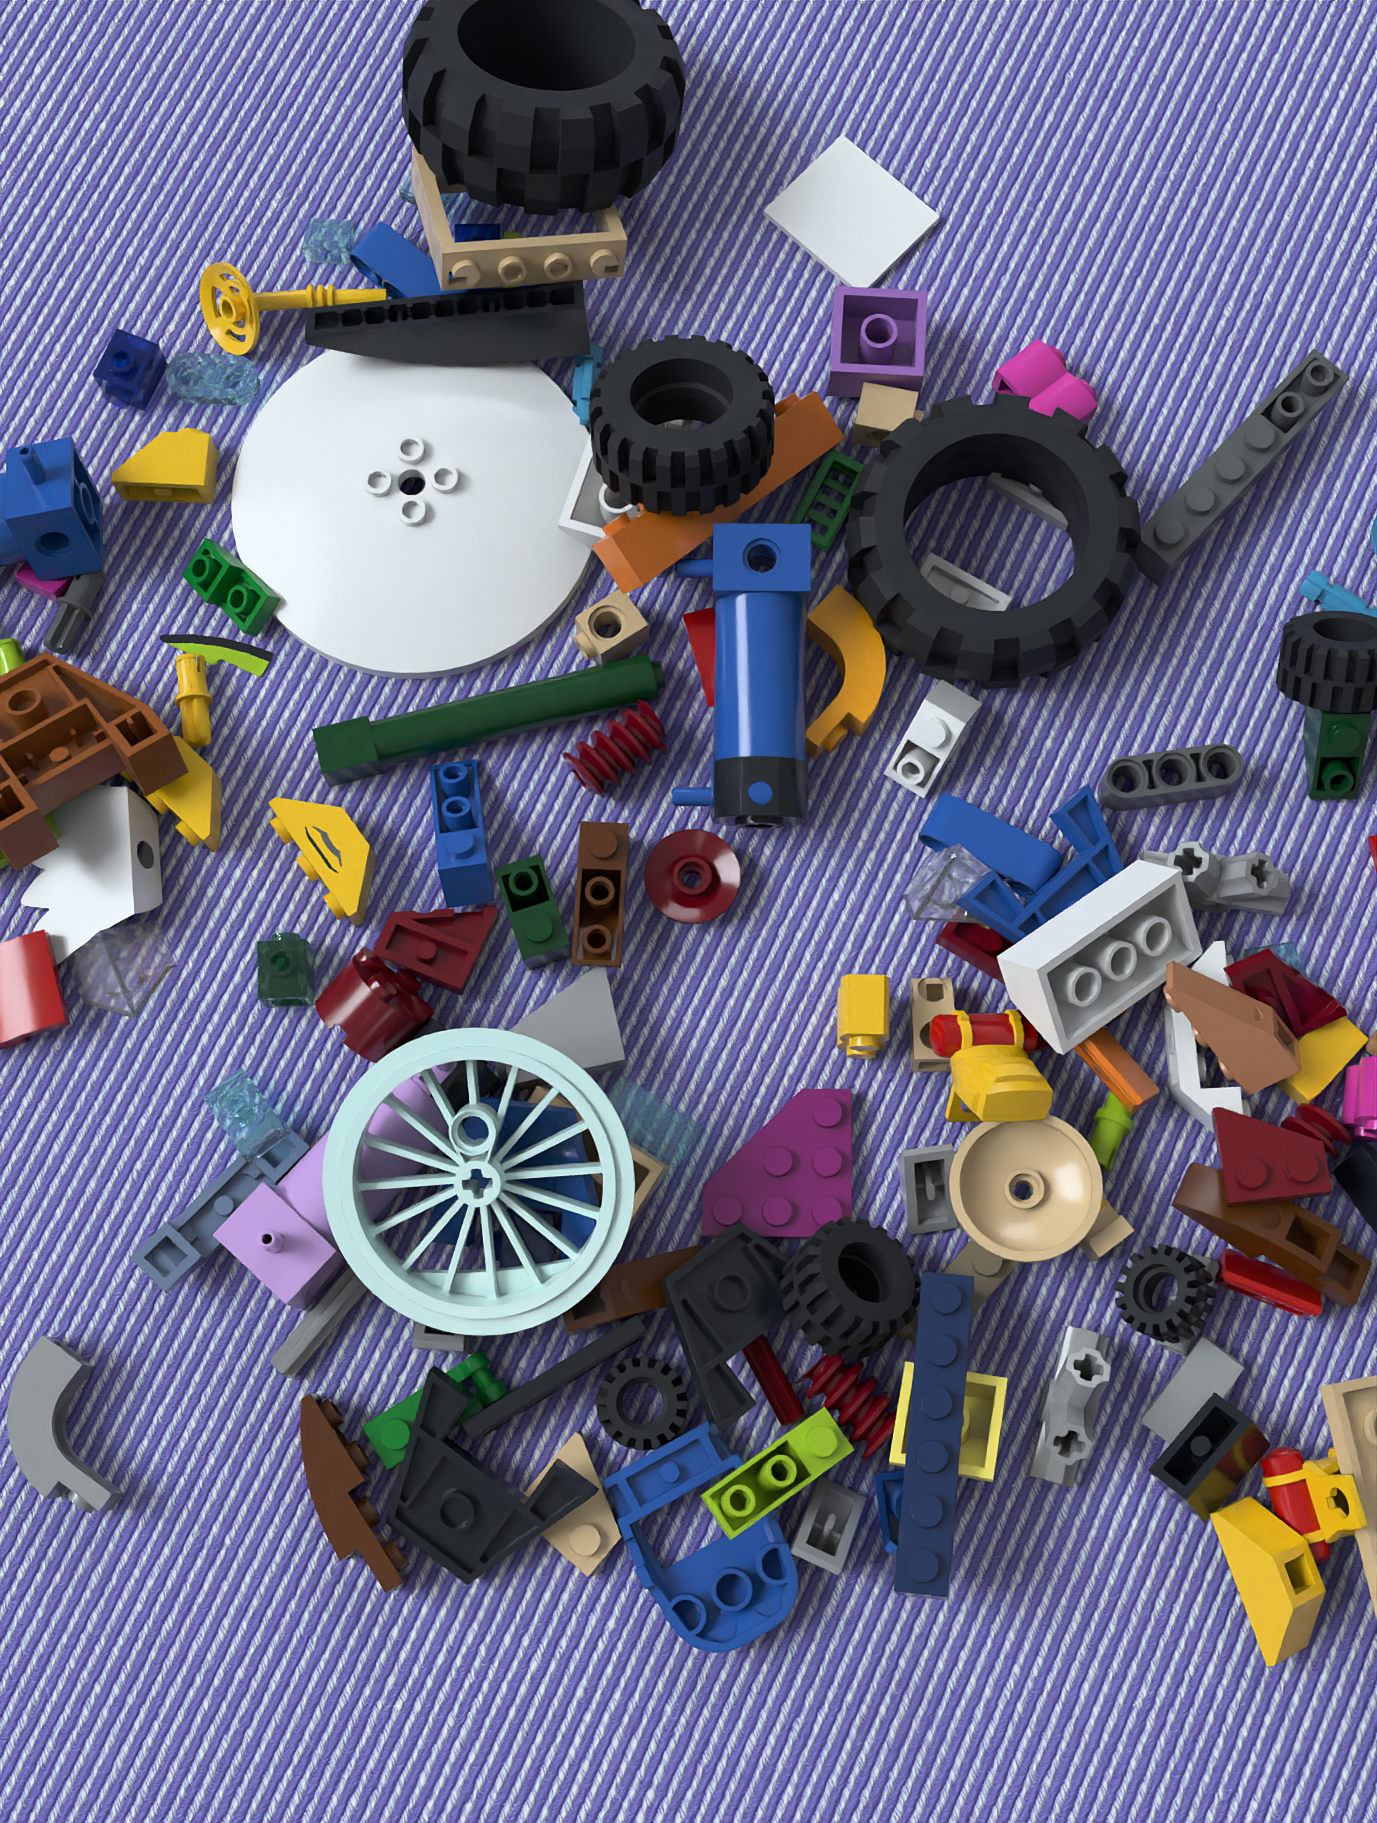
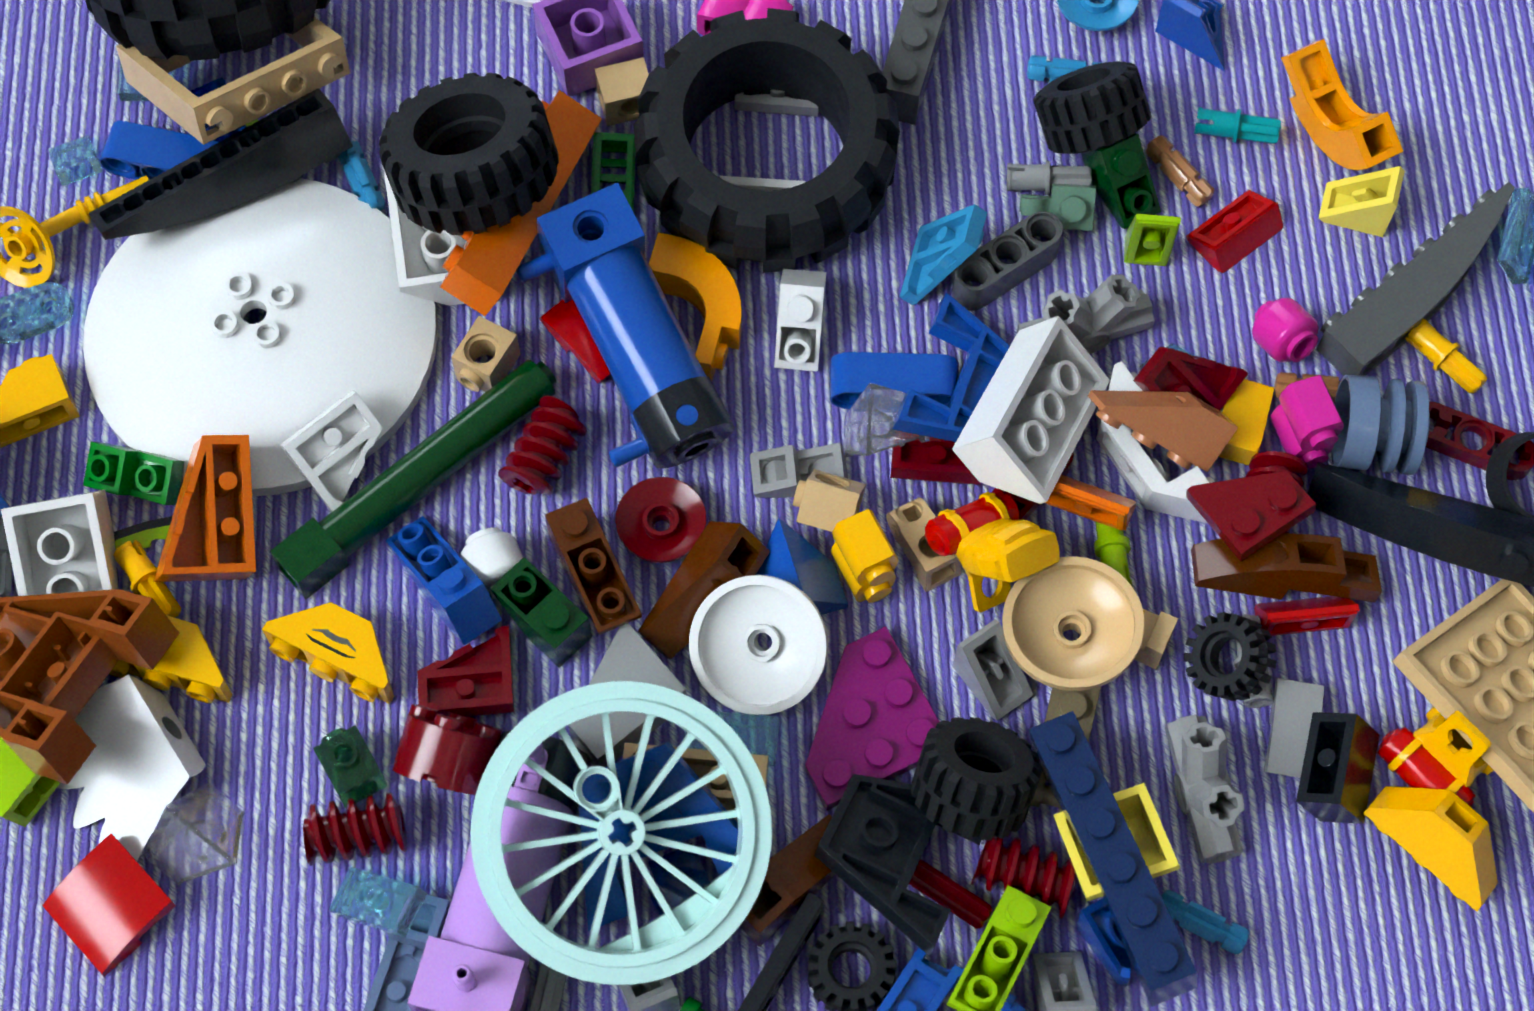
camera: 30 degrees left, 10 degrees down
(132, 632) = (62, 545): none -> white slope
(259, 1037) = (354, 828): none -> dark red piece
(275, 669) = (213, 515): none -> orange wedge
(422, 654) = (334, 447): none -> white wing
(513, 835) = (491, 555): none -> white head
(690, 1054) = (734, 664): none -> white dish
(698, 963) = (718, 556): none -> reddish brown slope
(787, 1000) = (805, 567): none -> blue slope
(851, 892) = (780, 469): none -> light grey slope
(860, 939) = (827, 499): none -> tan brick
(997, 1532) = (1206, 923): none -> dark azure axle
(1108, 736) = (941, 249): none -> dark azure wing
(1260, 709) = (1041, 176): none -> light grey axle
(1264, 749) = (1068, 202): none -> sand green plate
(1324, 828) = (1150, 239): none -> lime slope

